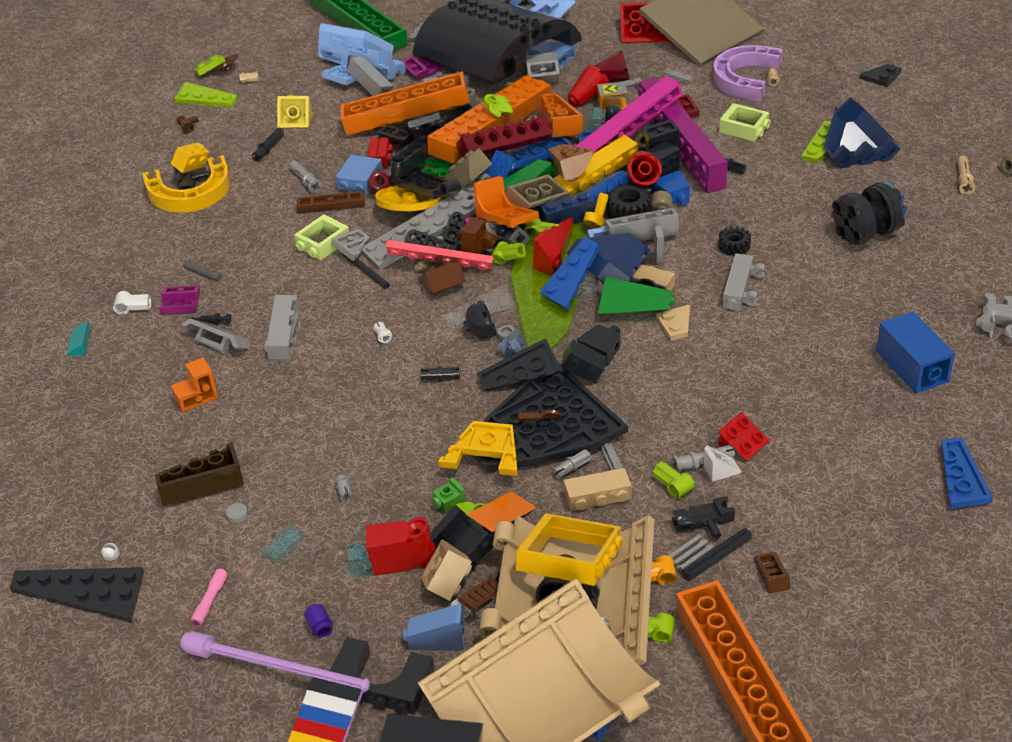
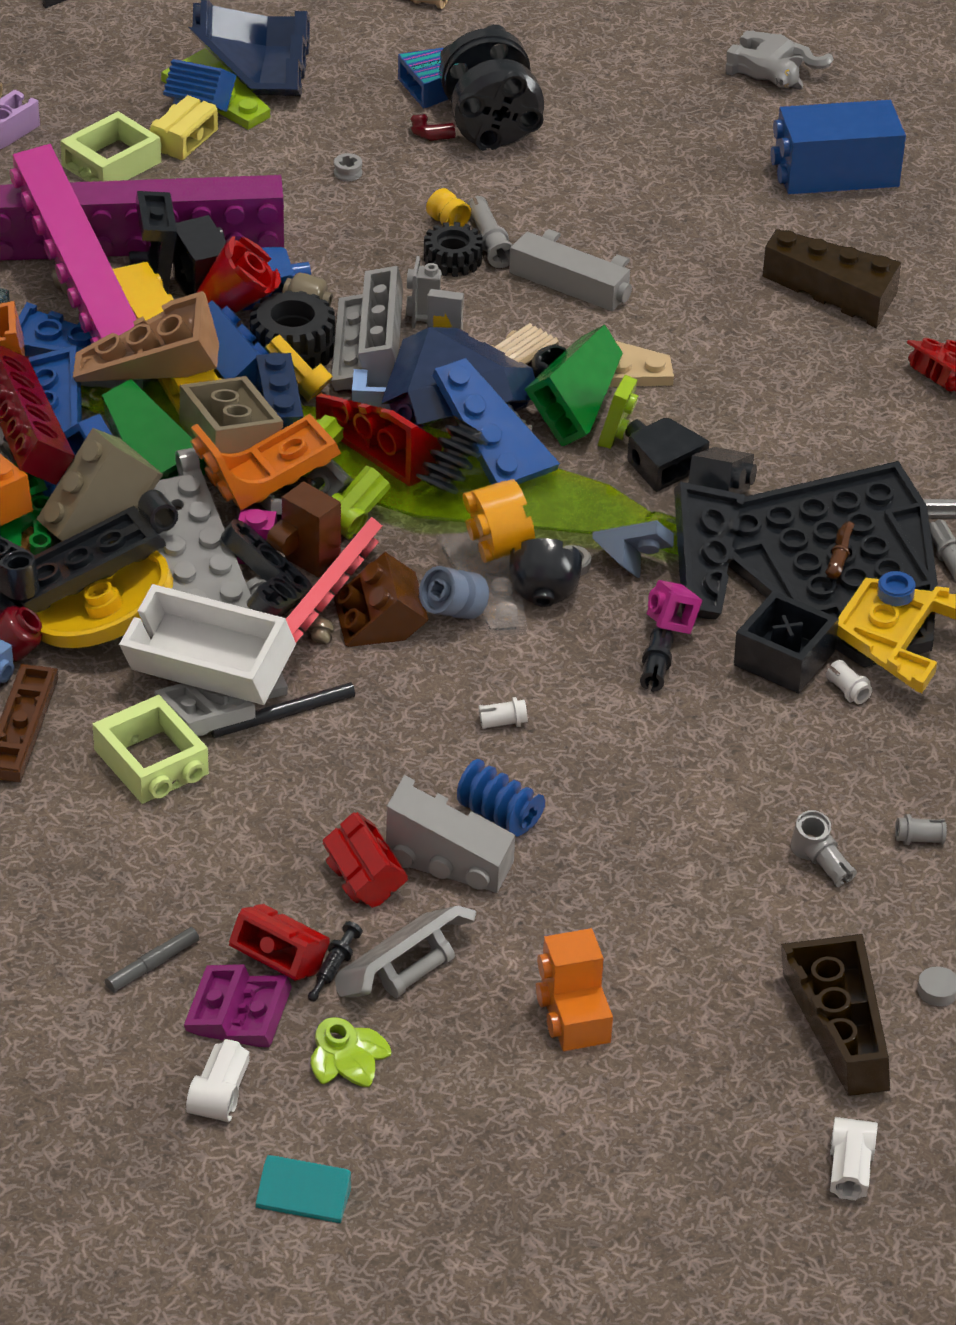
camera: 80 degrees left, 0 degrees up
(123, 497) = (852, 1151): none -> white piece
(158, 333) = (350, 1056): none -> lime plate
(211, 296) = (279, 941): none -> red brick
(260, 311) = (364, 861): none -> red brick
(319, 340) = (499, 799): none -> blue piece
(321, 450) = (821, 848): none -> light grey pin
(373, 227) = (208, 644): none -> white piece
(443, 446) = (855, 687): none -> white pin
(450, 293) = (454, 592): none -> sand blue wheel
(459, 409) = (785, 641): none -> black brick
(470, 365) = (664, 605): none -> dark pink brick
(498, 290) = (498, 519): none -> light orange brick
(503, 435) = (896, 588): none -> blue tile
(541, 266) = (453, 457): none -> black piece
(618, 314) = (621, 406): none -> lime wing
(677, 233) = (421, 280): none -> light grey hinge
(766, 231) = (445, 207): none -> yellow wheel
(767, 246) = (495, 238): none -> light grey pin
(779, 137) = (185, 126): none -> light yellow brick
(786, 194) = (348, 167): none -> light grey bush
(792, 378) = (833, 274): none -> dark brown wedge
(810, 130) = (201, 82): none -> blue brick

